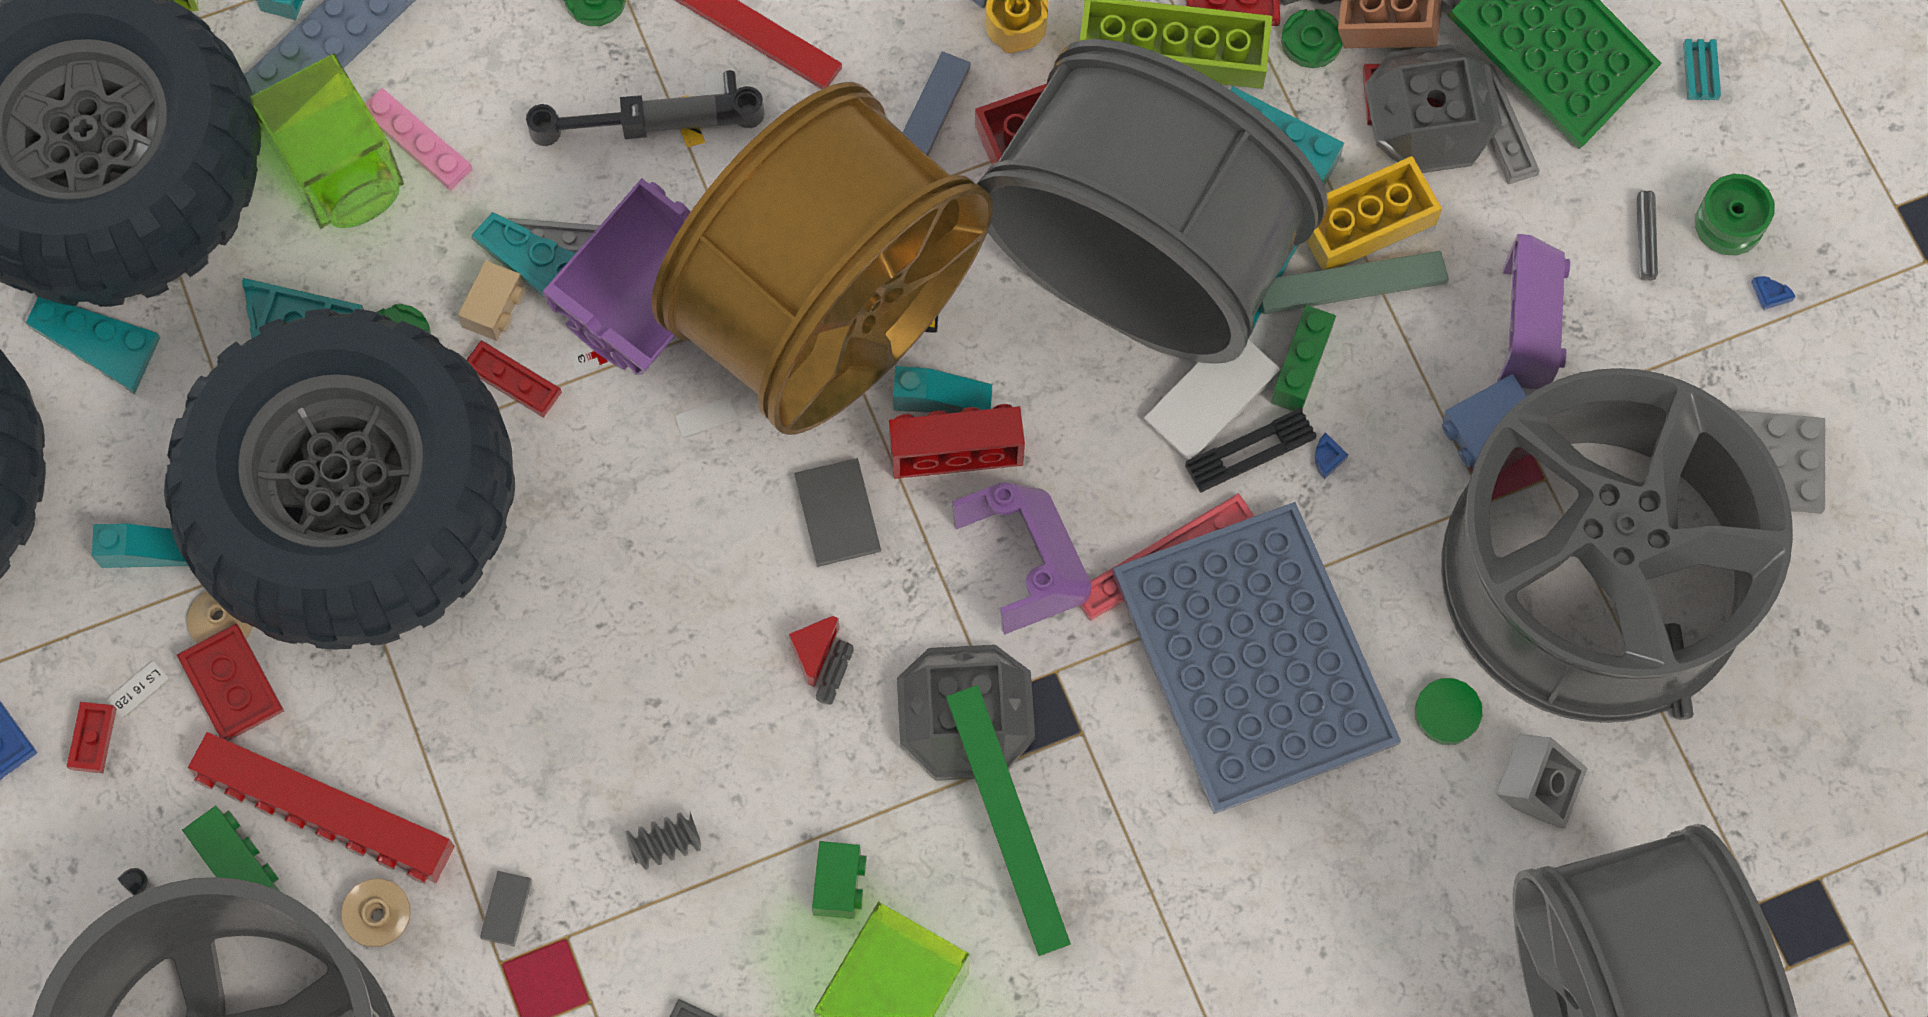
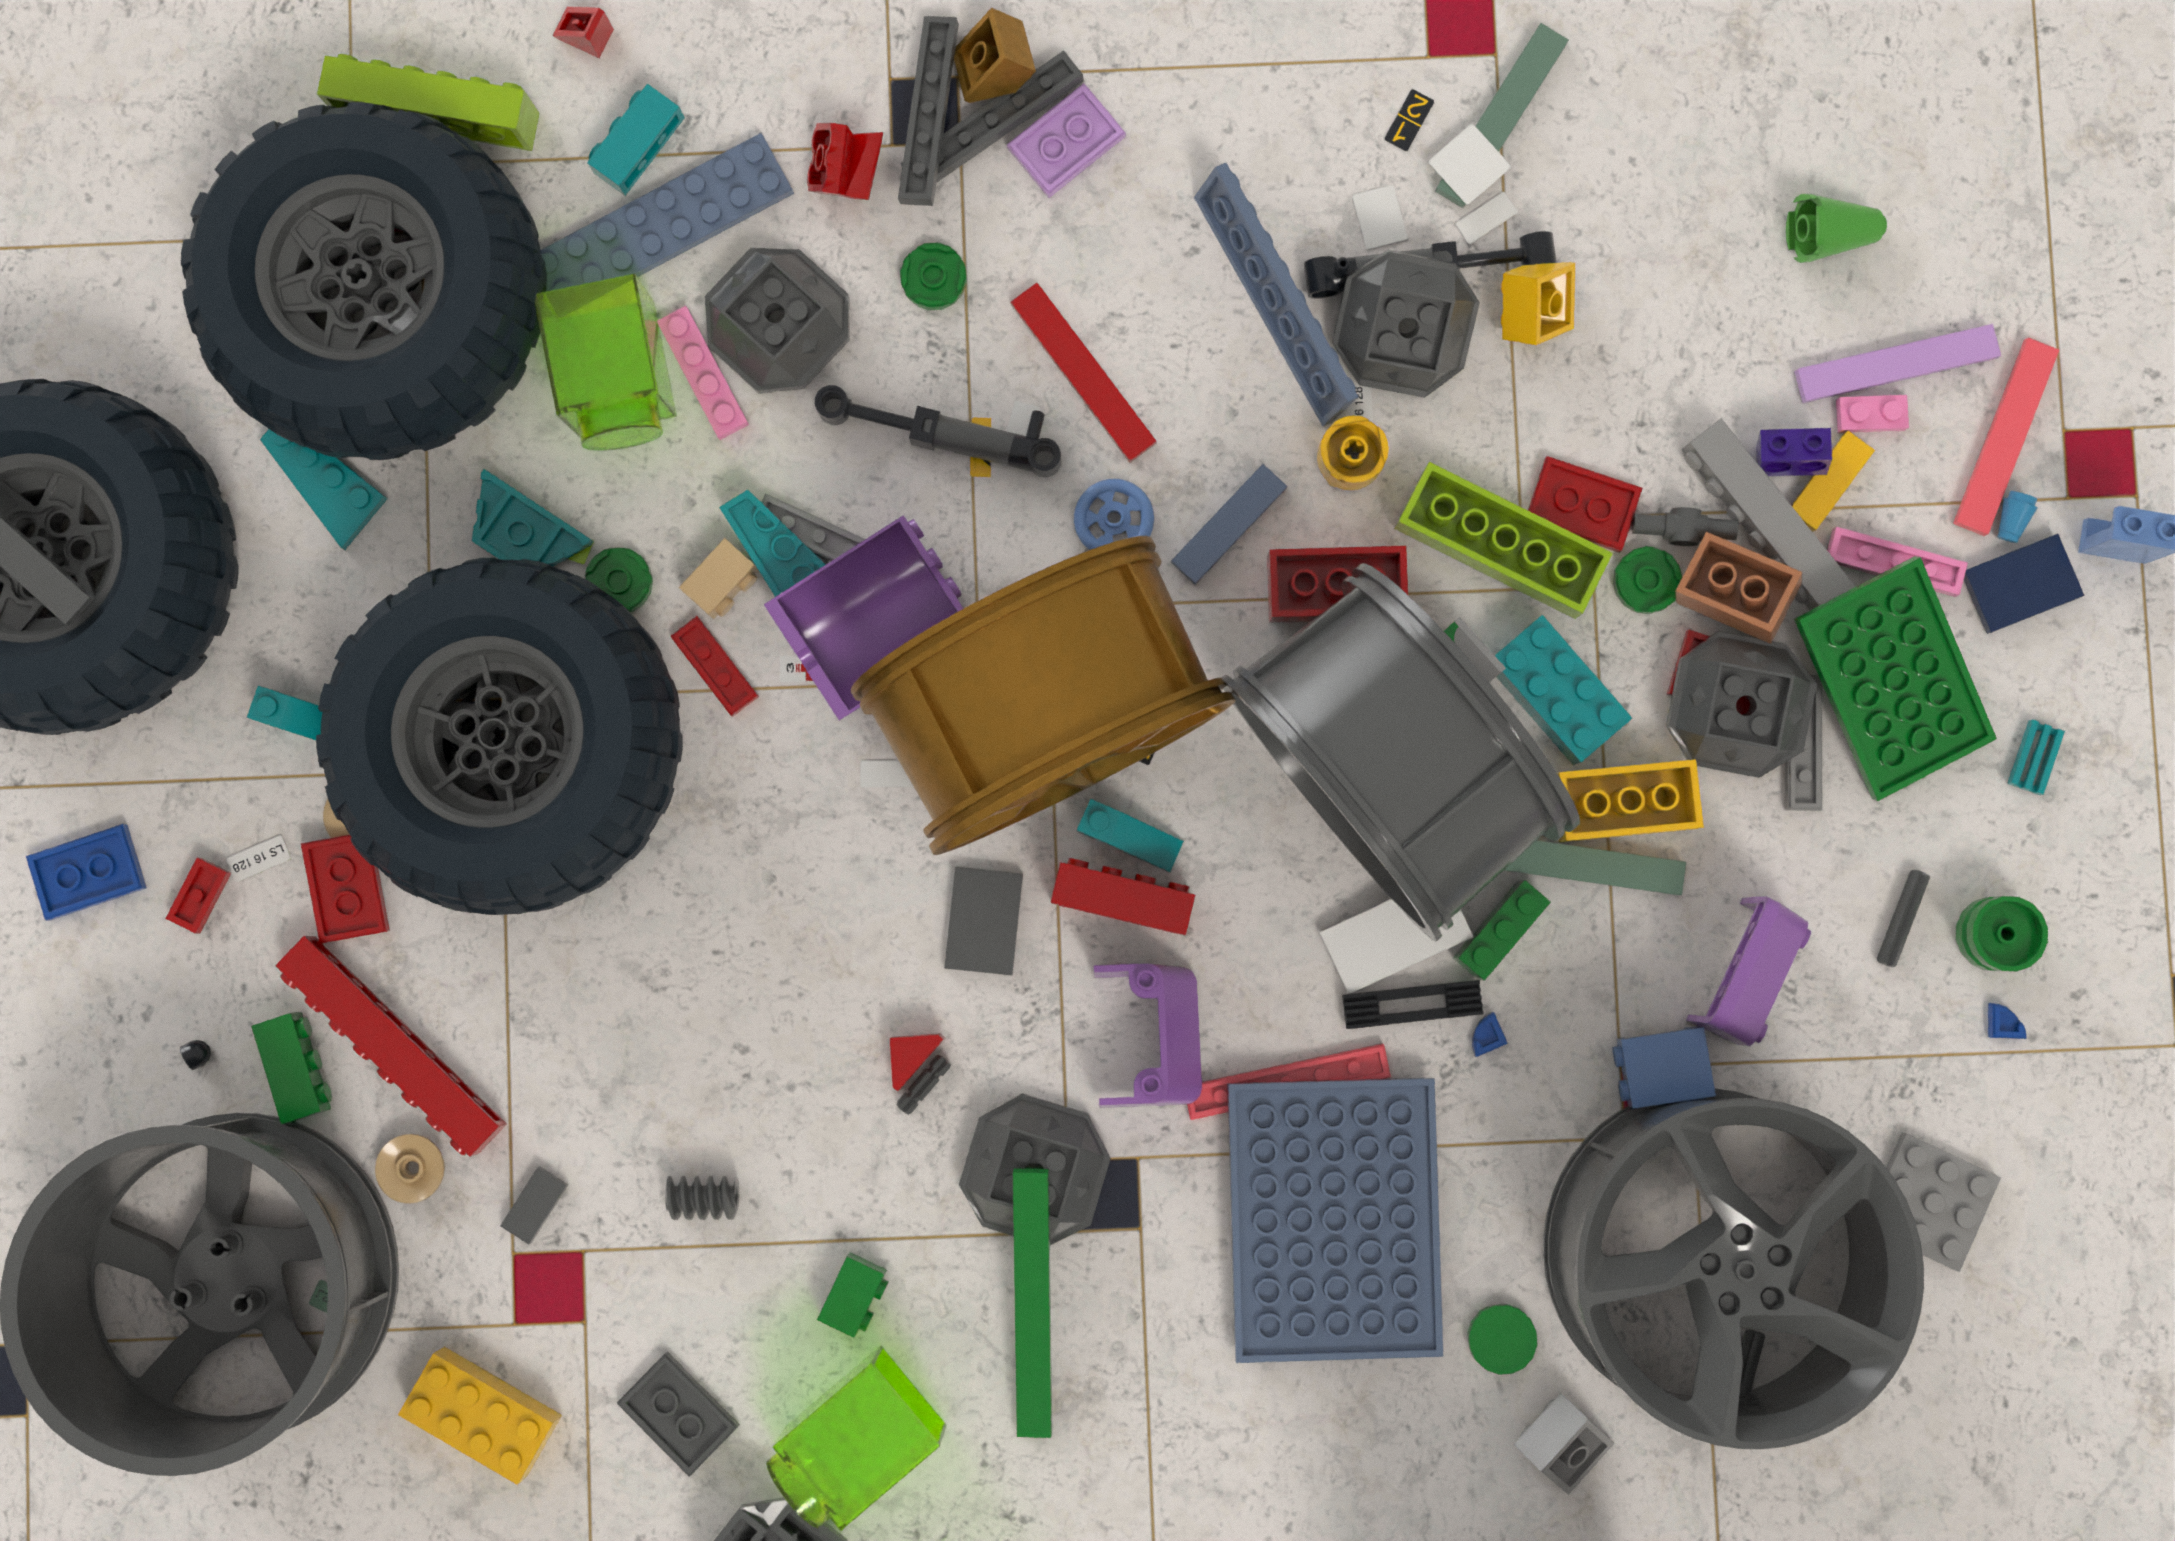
camera: 25 degrees right, 15 degrees up
(470, 99) = (785, 352): none -> dark grey piece

